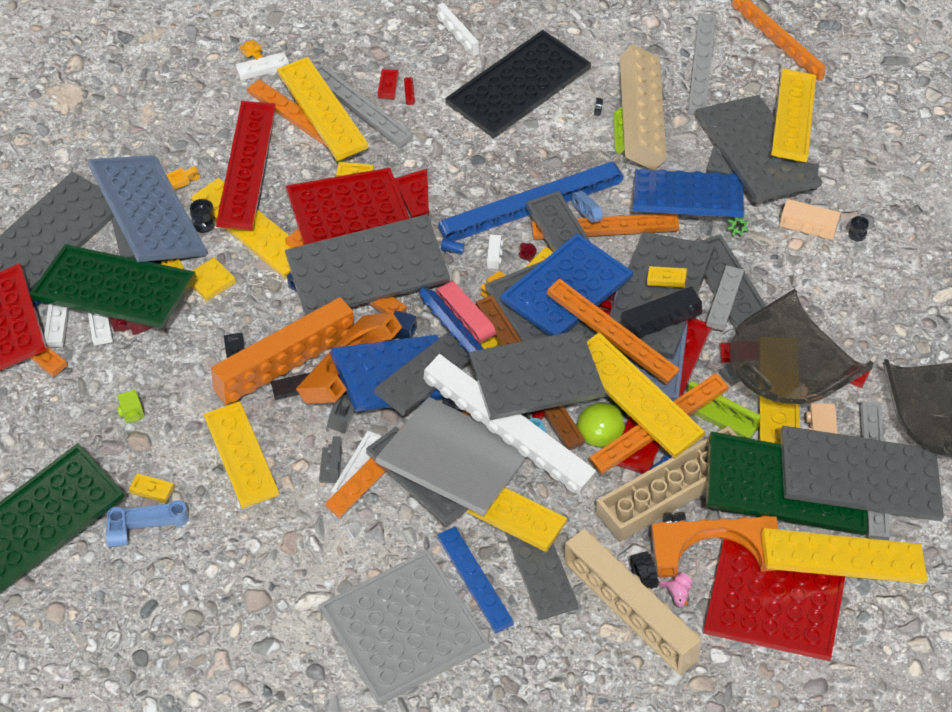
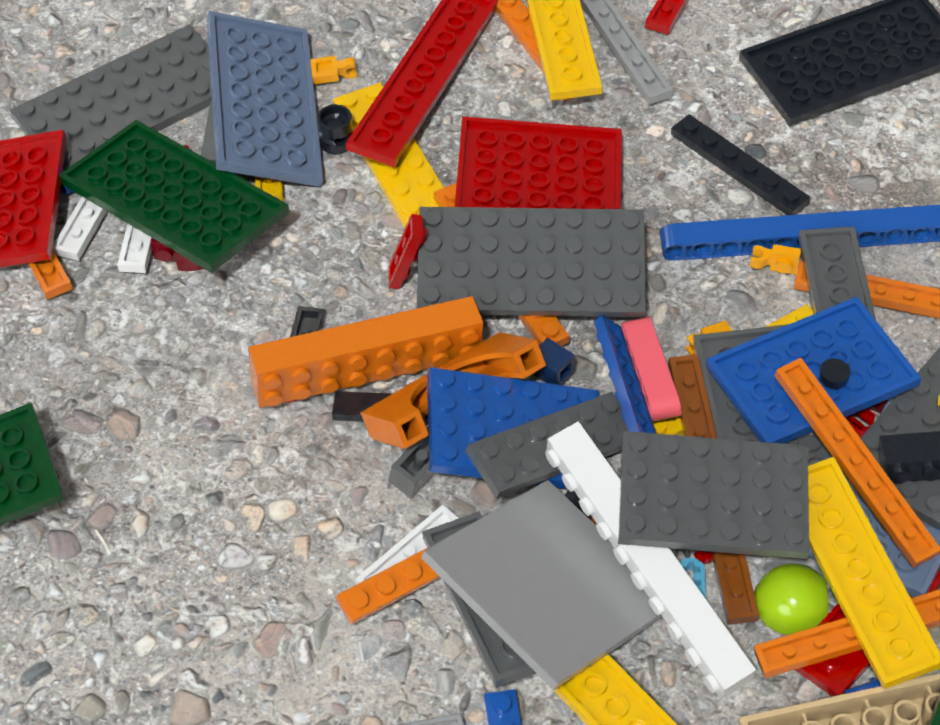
camera: 20 degrees right, 0 degrees up
(130, 406) = (128, 371): lime brick -> none
(142, 517) = (76, 535): medium blue piece -> none
(151, 488) = (109, 497): yellow plate -> none
(212, 279) = (313, 221): yellow plate -> none
(241, 455) = (251, 487): yellow plate -> none
(284, 281) = (406, 251): none -> red plate
(331, 461) = (373, 535): dark grey bracket -> none
(351, 168) = (562, 115): yellow plate -> none
(409, 91) = (693, 28): red axle -> none
(414, 192) = (645, 174): red wing -> none
(452, 246) = (669, 267): blue pin -> none
(471, 171) = (740, 166): none -> black plate
(494, 252) = (729, 291): white piece -> none
(519, 223) = (780, 258): none -> light orange plate
(527, 251) = (777, 303): dark red plate -> none
(581, 282) = (834, 373): none -> black tile
(587, 206) = (889, 261): medium blue beam -> none

